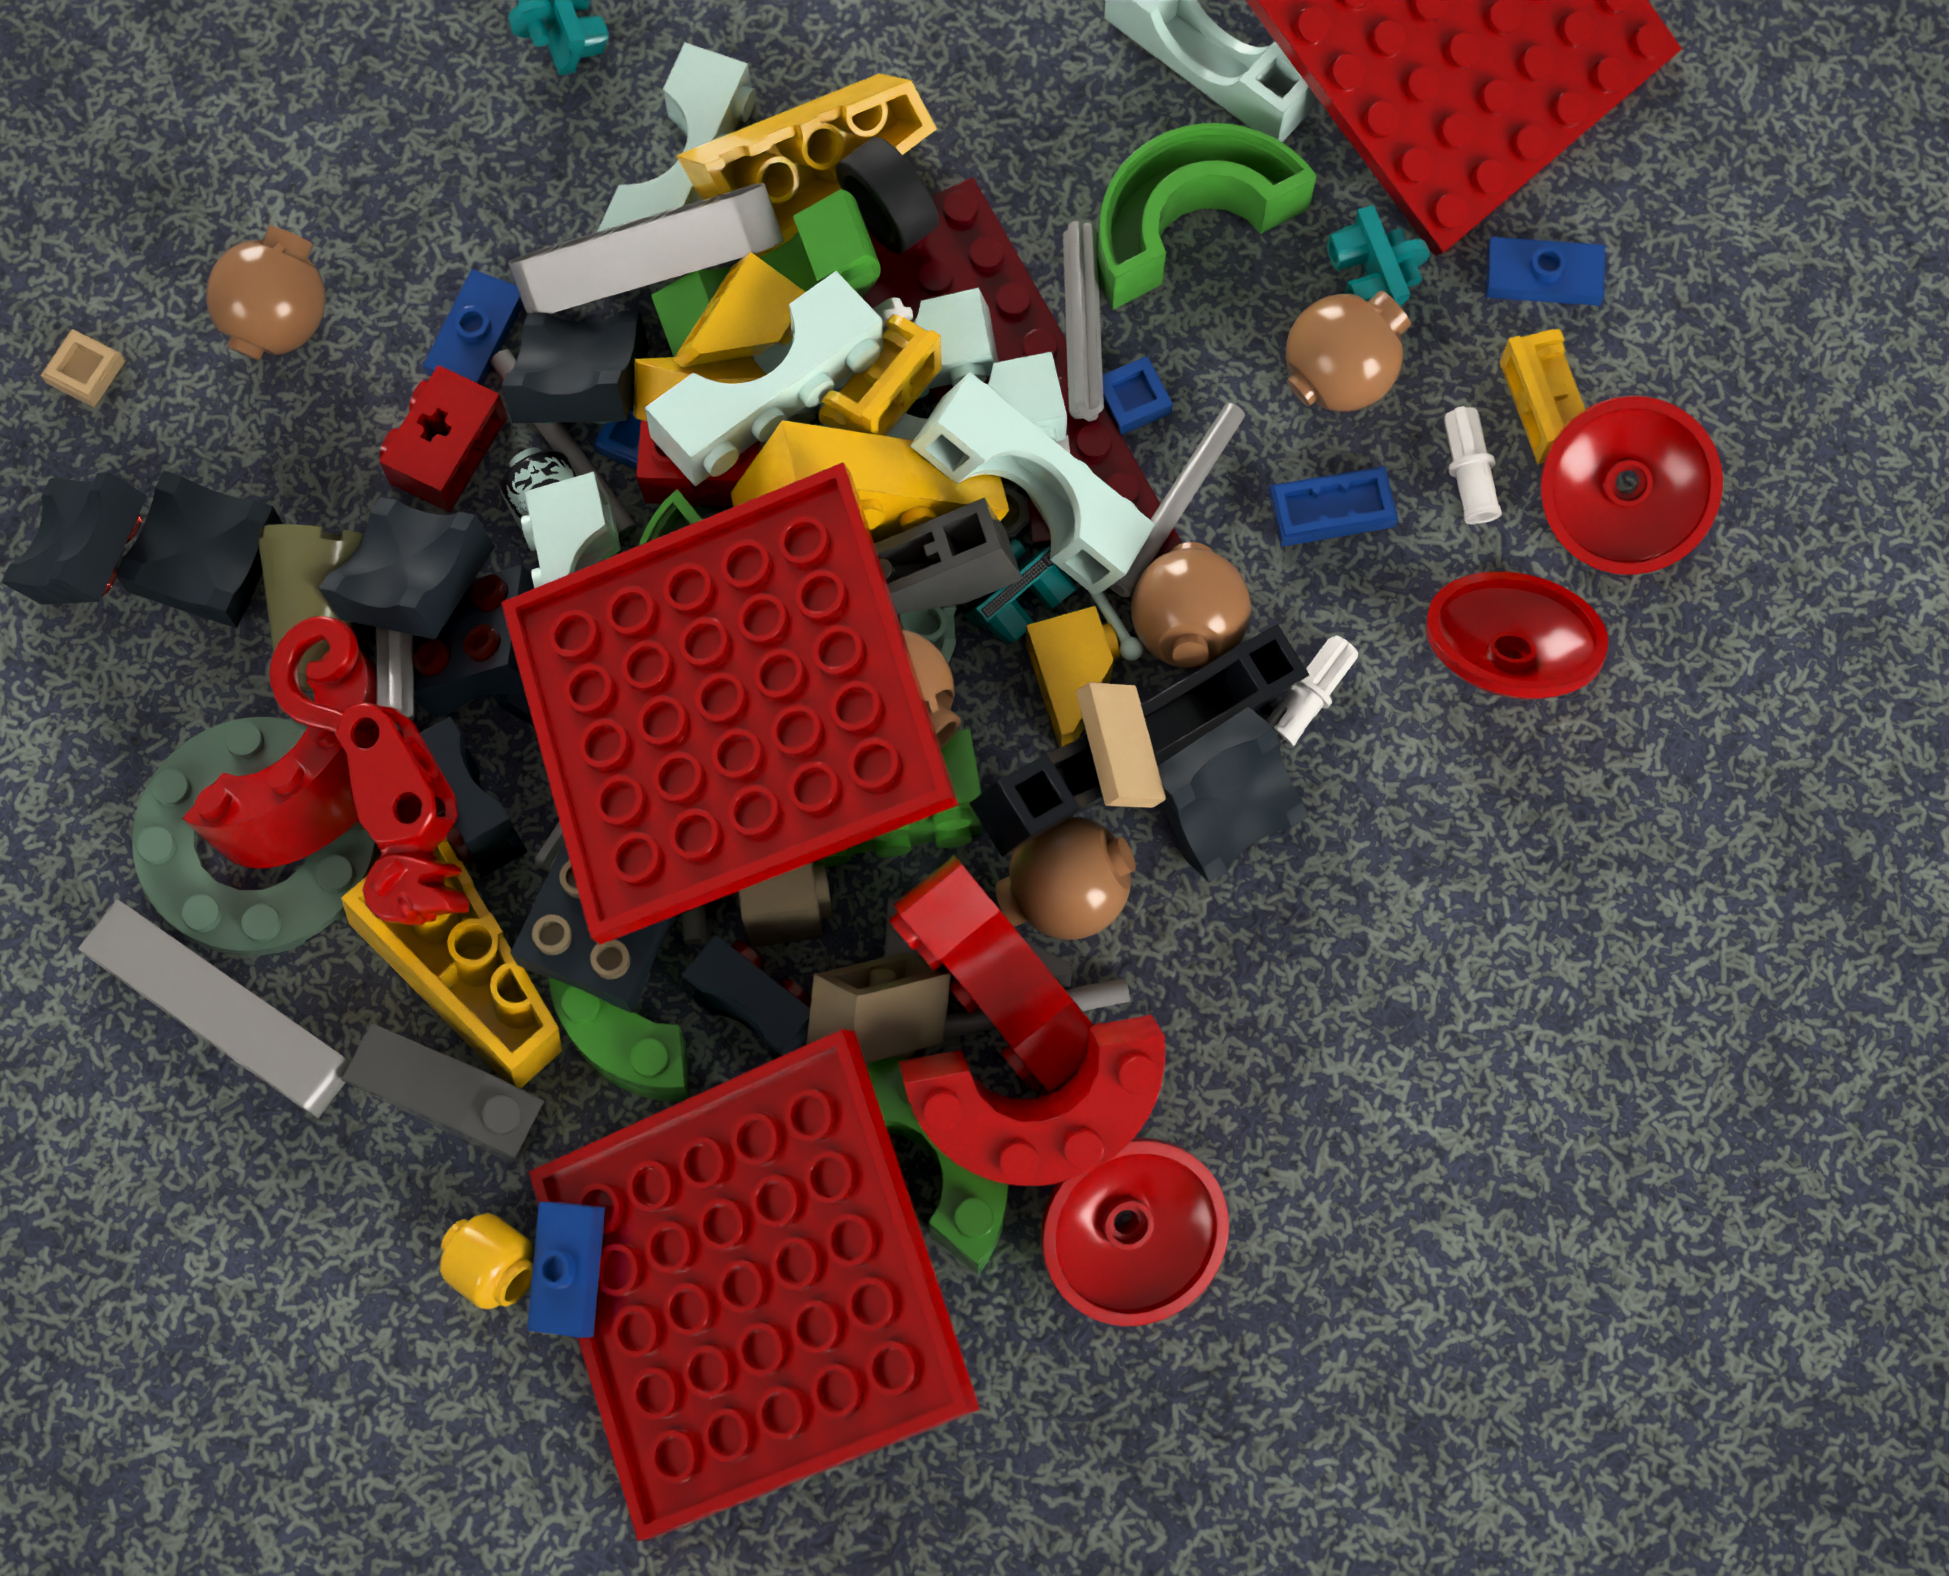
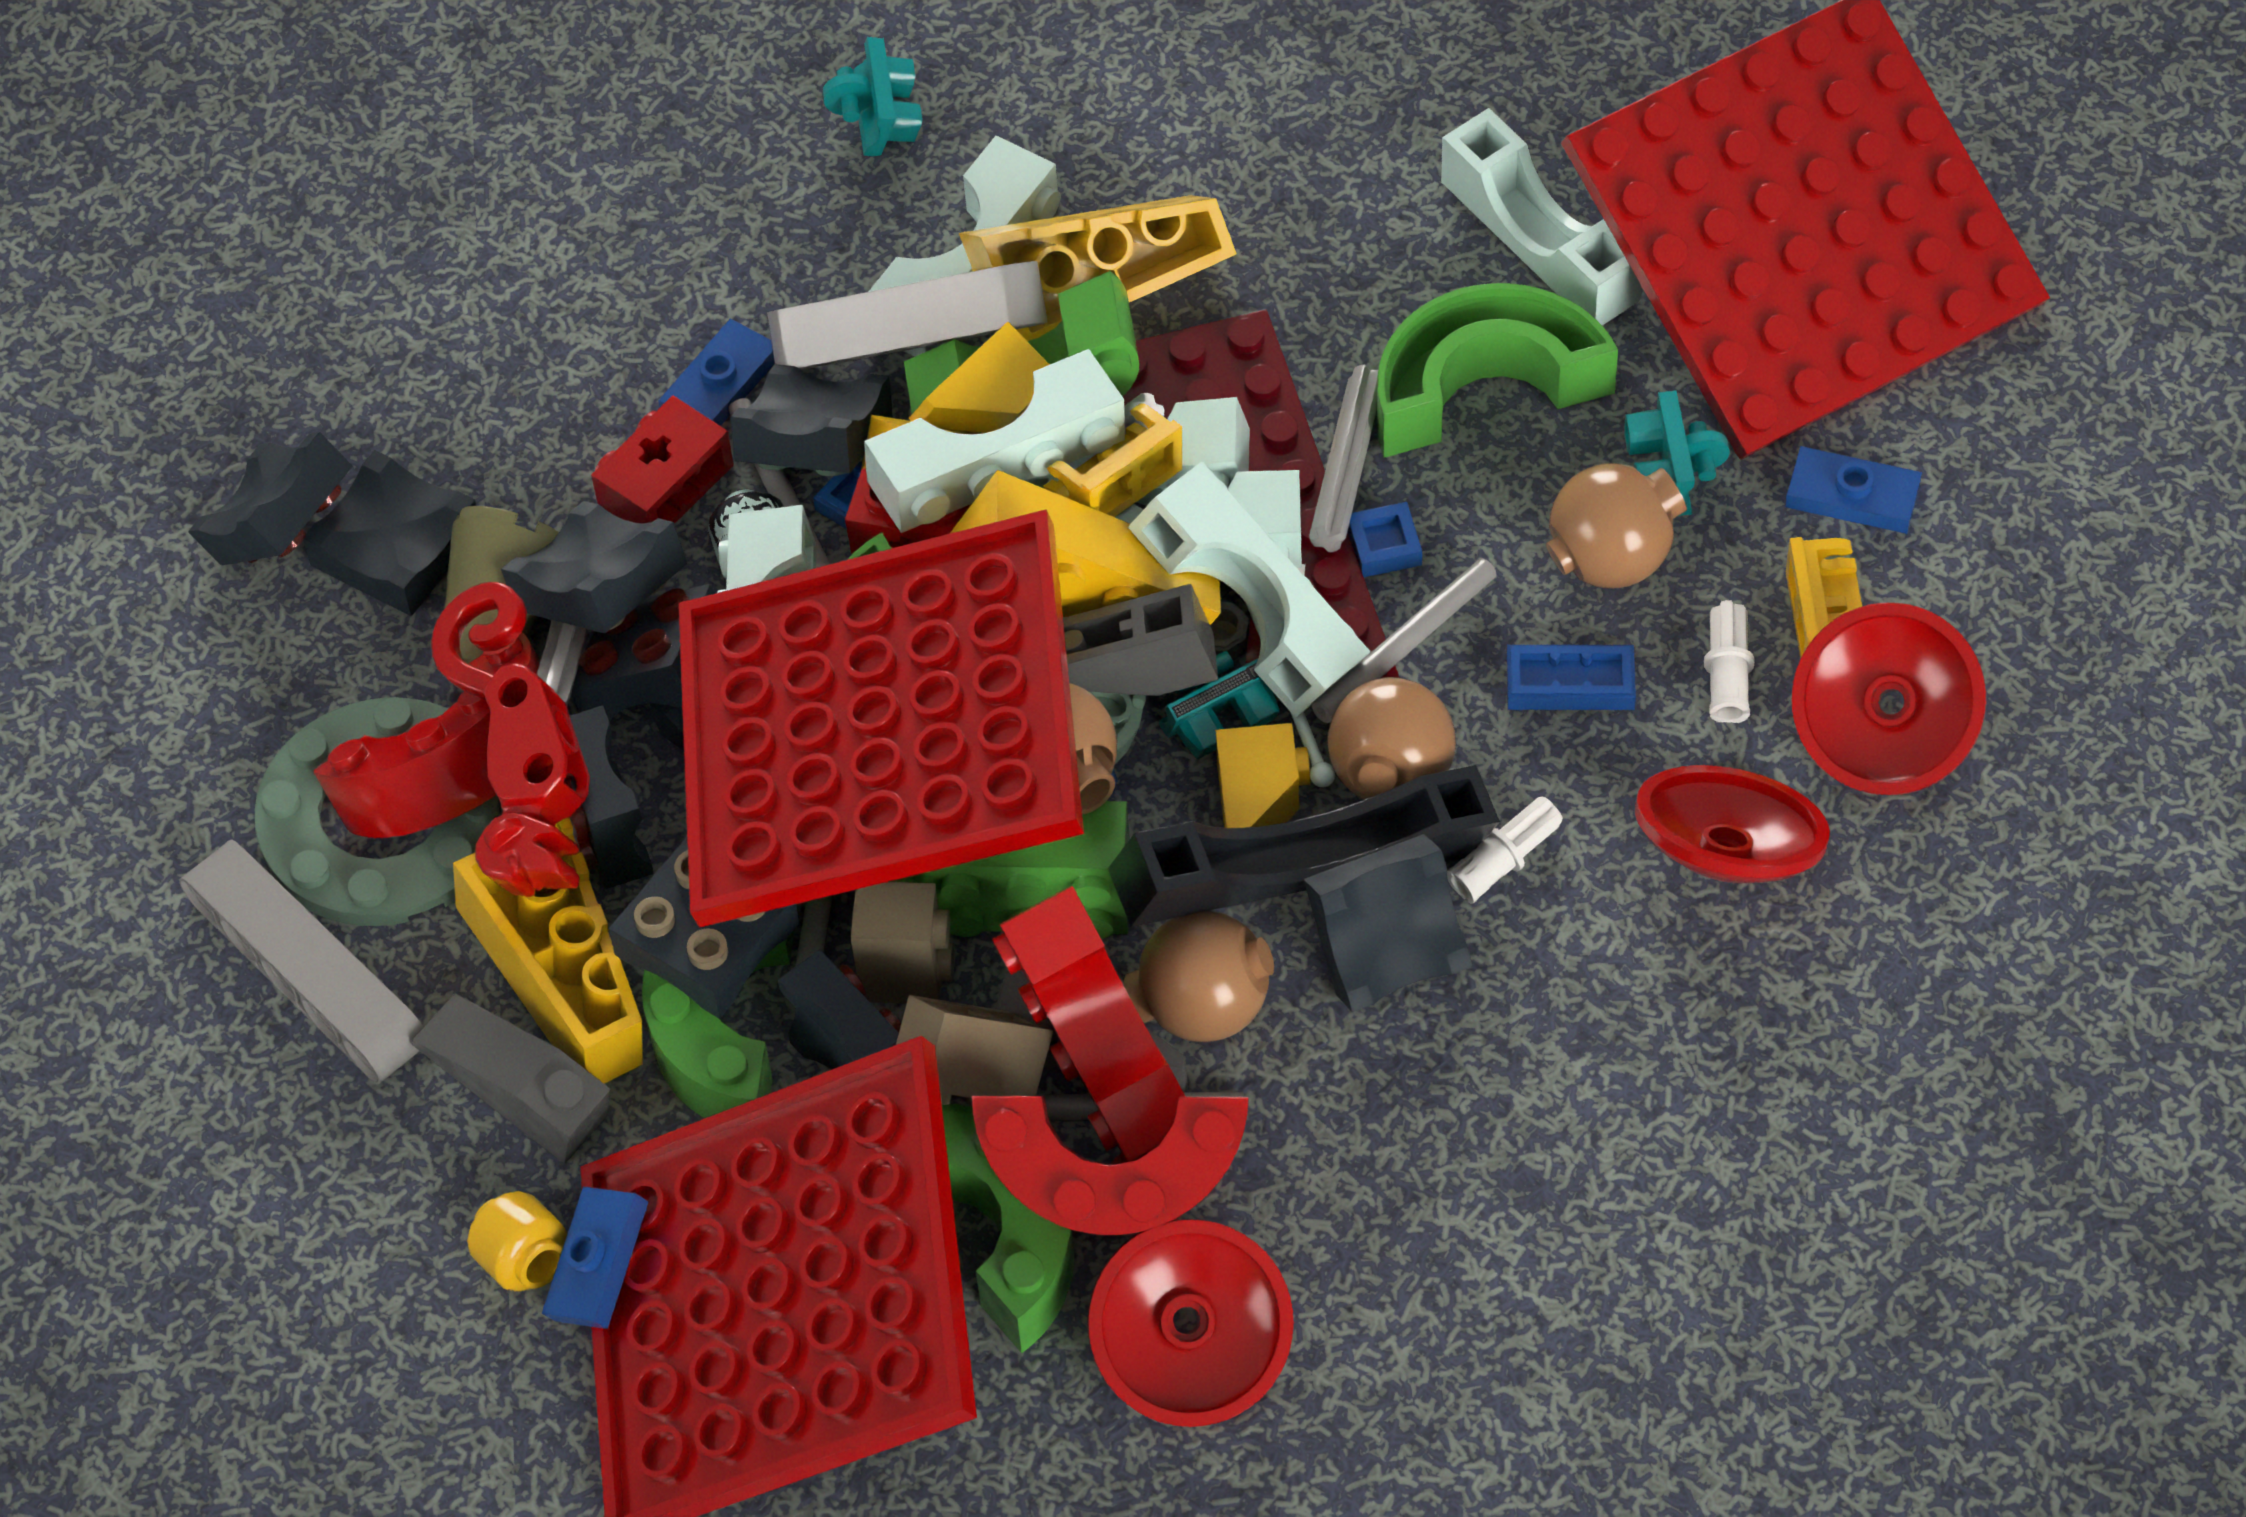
camera: 15 degrees right, 15 degrees down
(83, 368) = (317, 353): tan tile -> none
(266, 294) = (517, 306): medium nougat brick -> none
(888, 194) = (1166, 301): black tyre -> none
(1120, 745) = (1278, 841): tan tile -> none

